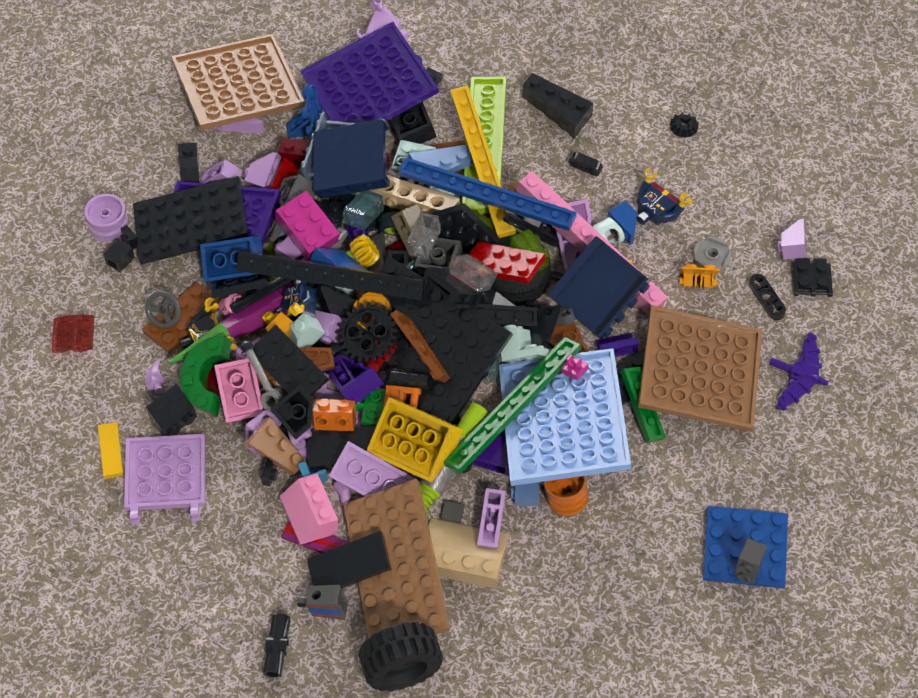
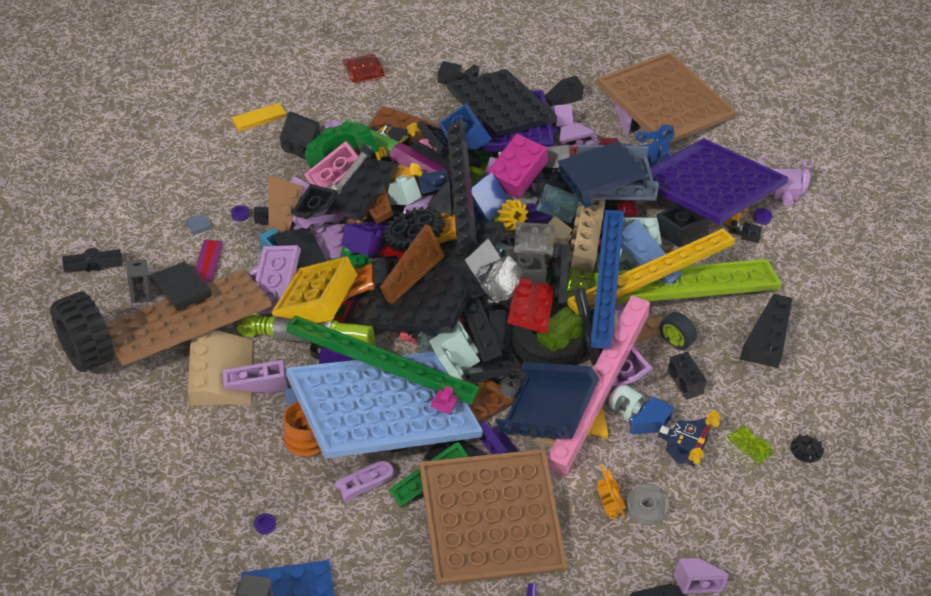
camera: 70 degrees right, 10 degrees down
(106, 217) = (483, 52): lavender wheel -> none
(164, 474) = (242, 153): lavender plate -> none
(171, 305) = (401, 107): dark grey piece -> none
(252, 496) = (240, 213): none -> dark purple tile
(255, 537) = (198, 224): none -> sand blue tile
(309, 509) = (232, 251): bright pink slope -> none
(334, 415) = (328, 235): orange brick -> none
(452, 512) = (262, 353): dark grey tile -> none
(542, 165) = (678, 330): none -> black wheel
(585, 163) = (709, 370): black beam -> none
(588, 181) = (686, 375): none -> black brick
(636, 463) = (364, 480): none -> lavender plate
(653, 549) = (265, 523): none -> dark purple tile
(672, 161) = (754, 448): none -> clear neon green slope
(767, 289) = (617, 558): black beam -> none

